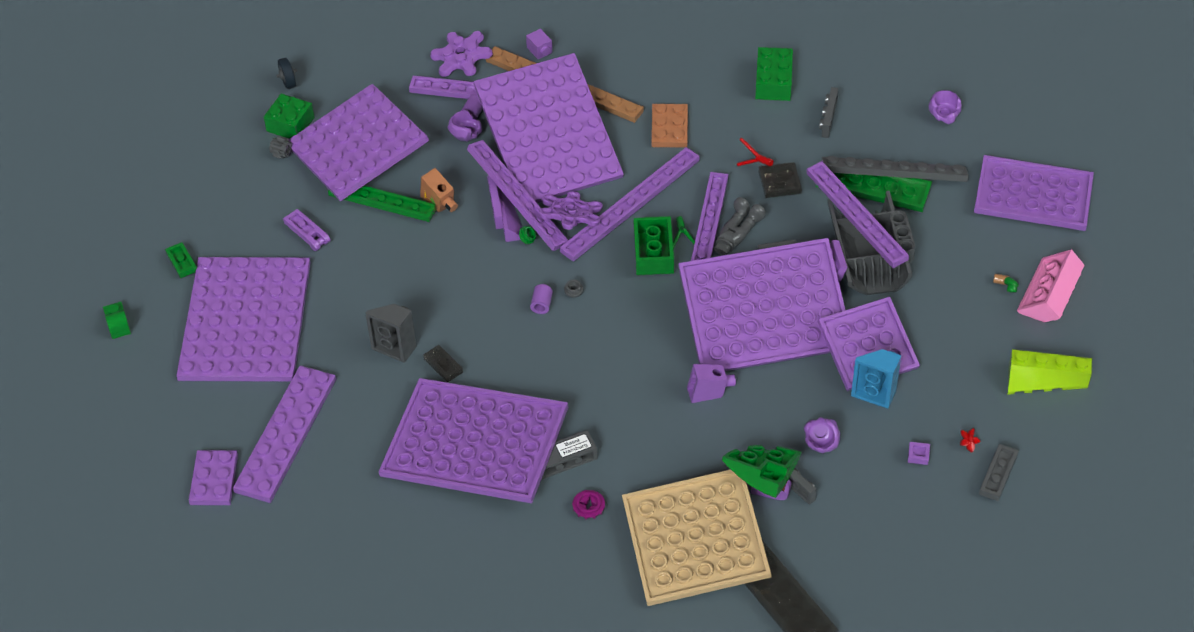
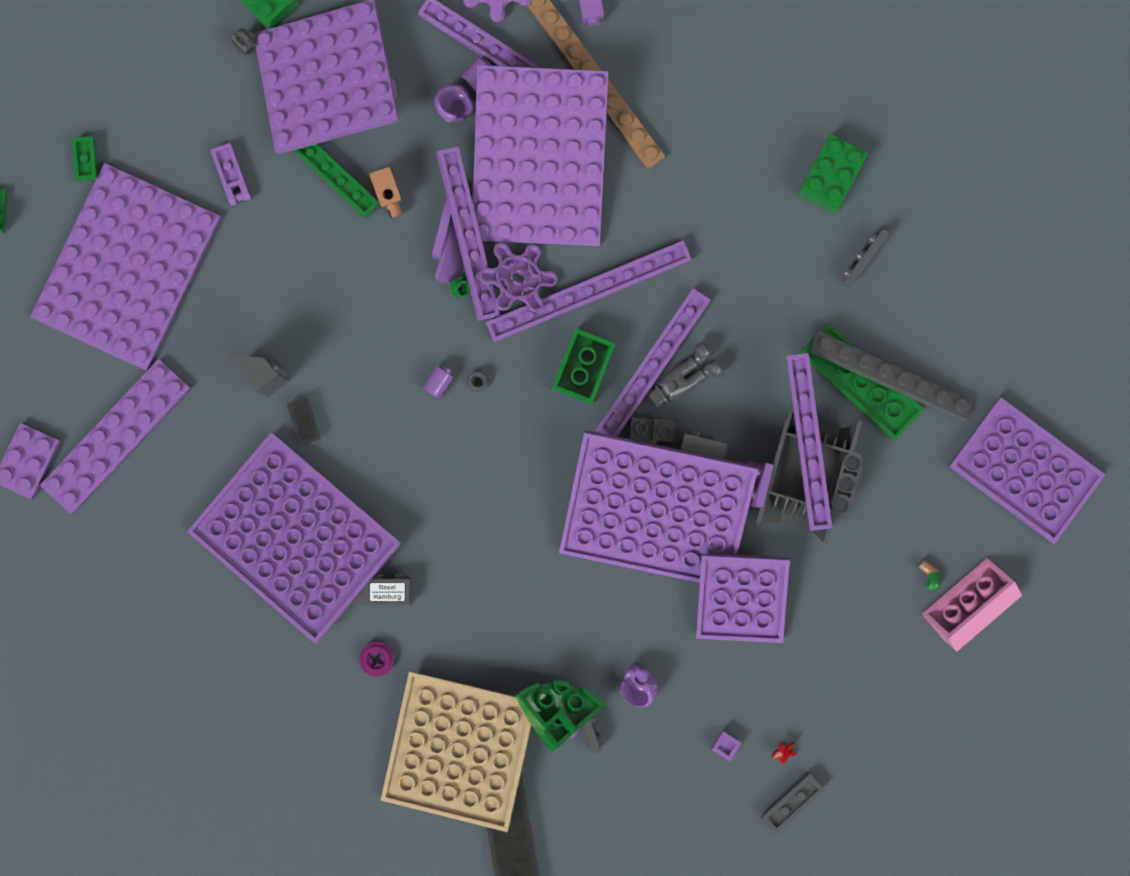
camera: 20 degrees right, 35 degrees up
(669, 125) = (682, 194): nougat plate -> none
(681, 229) = (625, 353): green plant -> none
(708, 382) = (551, 571): medium lavender torso -> none
(759, 158) = (754, 292): red plant -> none
(780, 180) = (763, 330): clear smoke plate -> none
(876, 377) = (729, 655): dark azure slope -> none
(945, 106) = (995, 310): medium lavender hair -> none
(1047, 371) = (897, 706): lime wedge -> none

